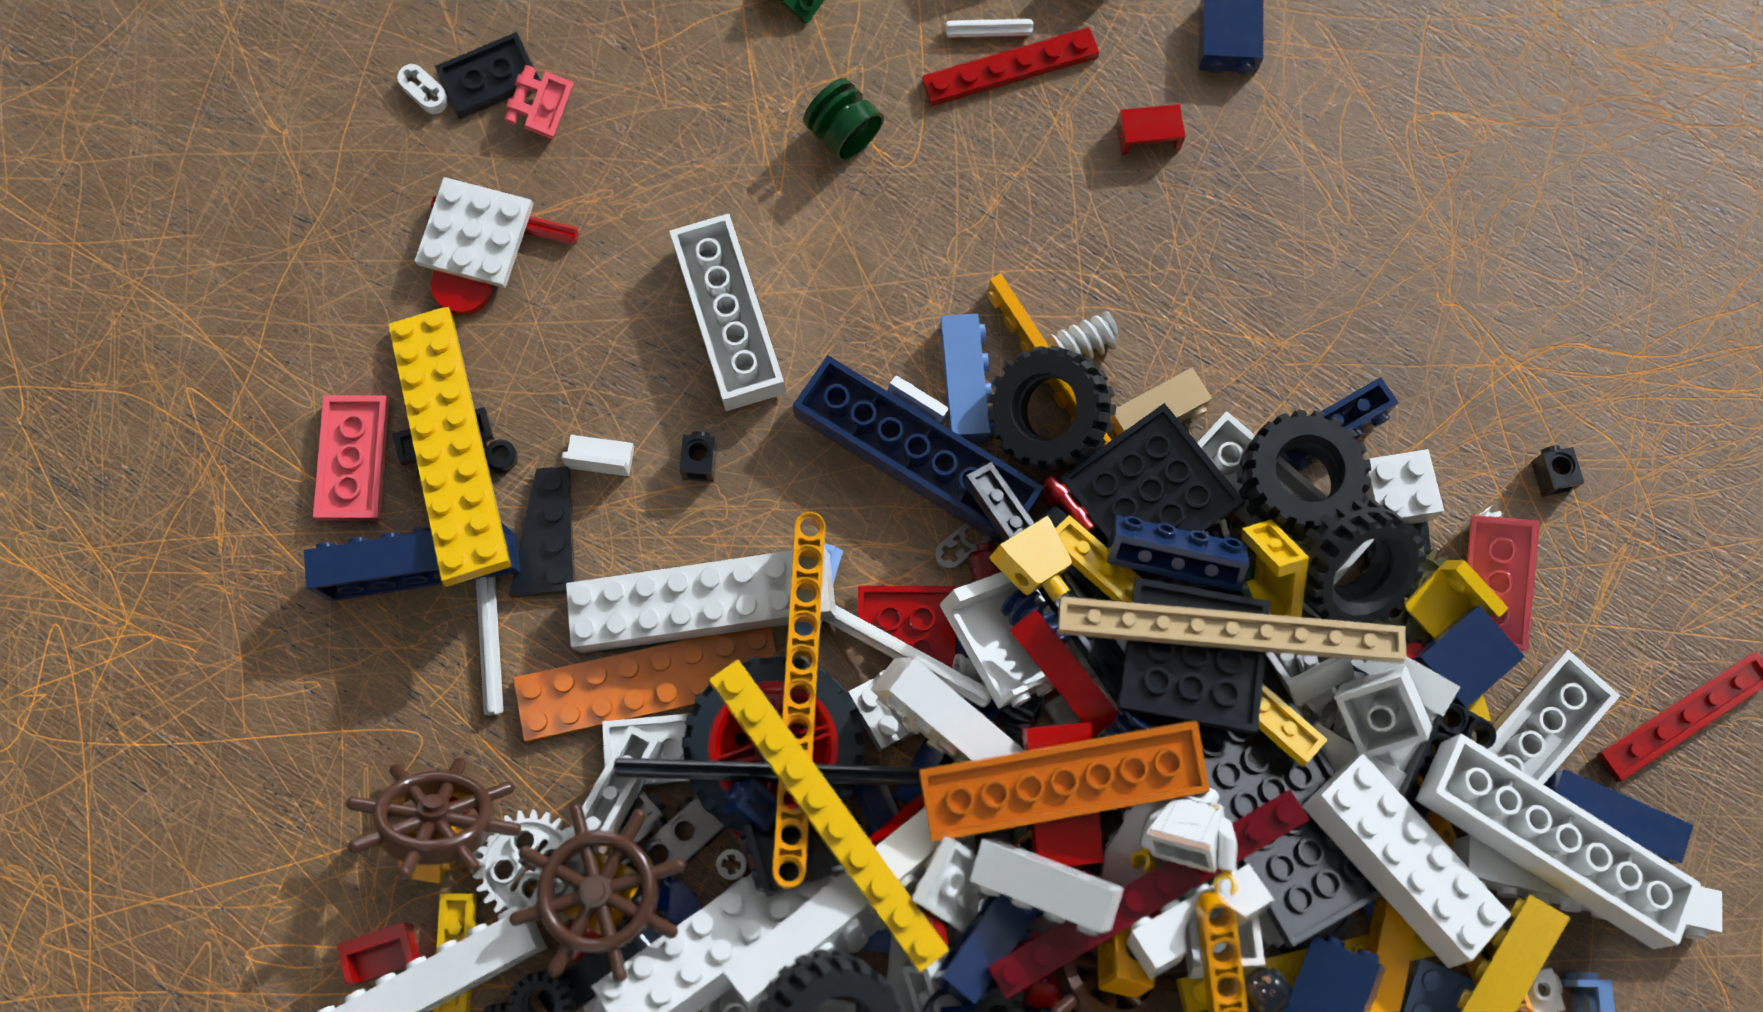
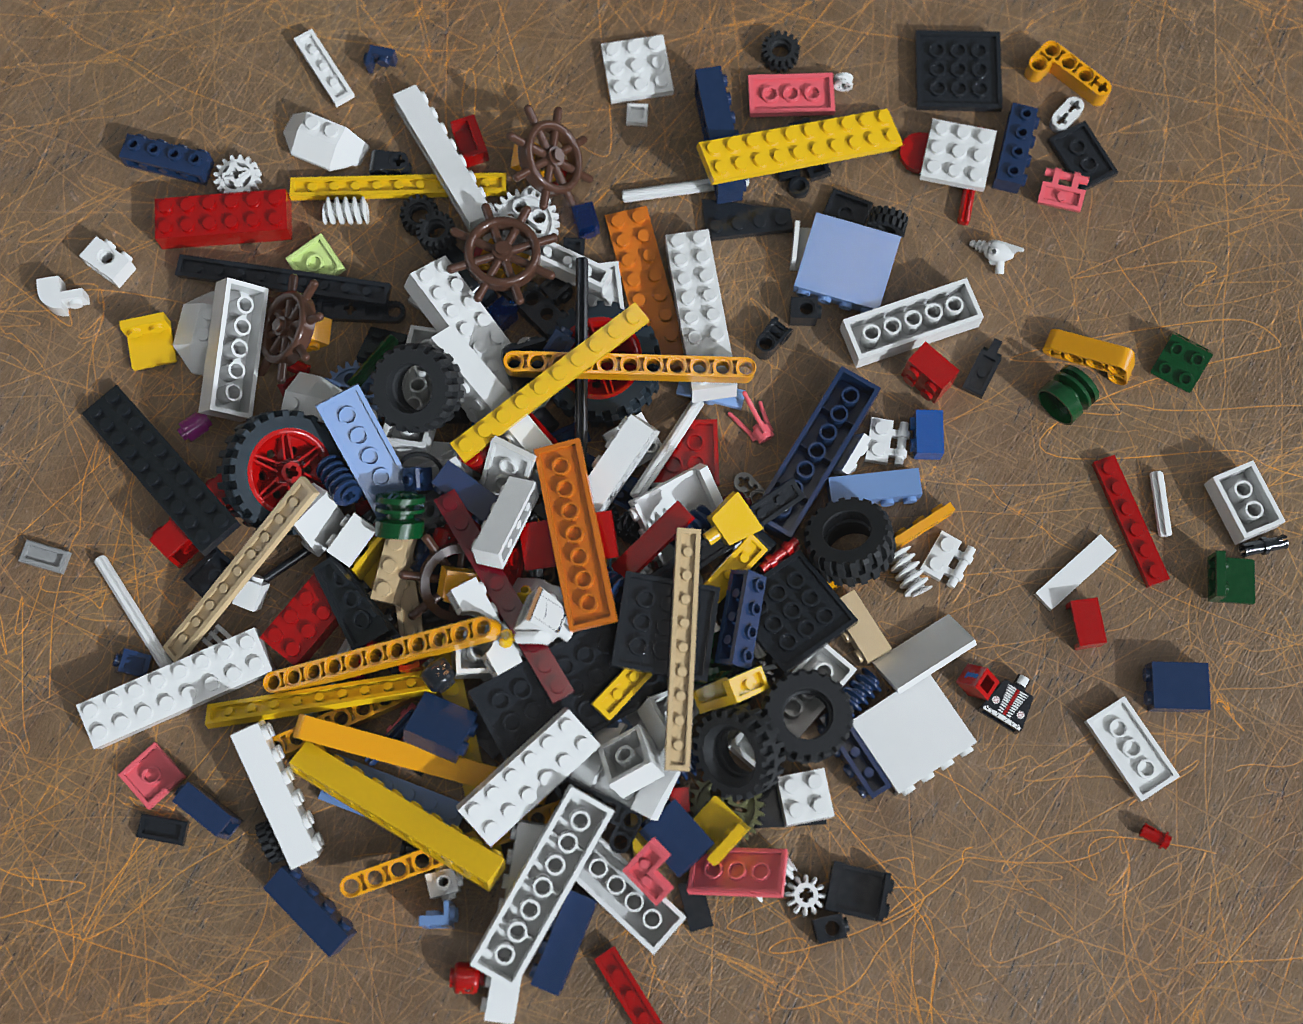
camera: 90 degrees right, 0 degrees up
(262, 460) = (784, 41): none -> black tyre
(280, 686) = (637, 69): none -> white plate
(338, 224) = (958, 71): none -> black plate
(339, 381) = (843, 82): none -> white bush
(358, 688) = (637, 114): none -> white tile
(390, 50) = (1094, 88): none -> light orange beam
(469, 157) = (1015, 148): none -> dark blue brick
(532, 769) = (585, 220): none -> clear blue brick
(550, 393) = (848, 207): none -> black tile
(573, 333) = (888, 220): none -> black tyre
(573, 789) = (575, 244): none -> black tile
(625, 193) = (996, 252): none -> white piece
(632, 392) = (846, 264): none -> medium blue panel
(732, 500) = (774, 336): none -> black piece
(782, 89) = (1092, 353): none -> light orange beam
(796, 225) = (983, 370): none -> black hinge
(804, 291) = (929, 373): none -> red brick
(874, 523) = (762, 430): none -> coral plant
(882, 366) = (879, 446): none -> white plate
(888, 304) = (927, 434): none -> blue brick
(1058, 301) = (941, 555): none -> white plate
(1080, 138) = (1075, 572): none -> white tile
(1196, 326) = (924, 653): none -> white tile
(1232, 265) = (977, 681): none -> red brick
(1245, 410) = (861, 688): none -> dark blue piece
(1257, 230) = (1009, 704): none -> torso
(1300, 349) = (914, 734): none -> white panel
(1309, 92) = (1132, 749): none -> white plate
(1419, 70) = (1155, 836): none -> red pin
(1506, 433) = (858, 892): none -> black panel
(1517, 698) = (644, 873): none -> coral plate
(1524, 503) = (800, 888): none -> white gear
(1547, 642) = (696, 909): none -> black tile
(1661, 964) = (465, 978): none -> red head

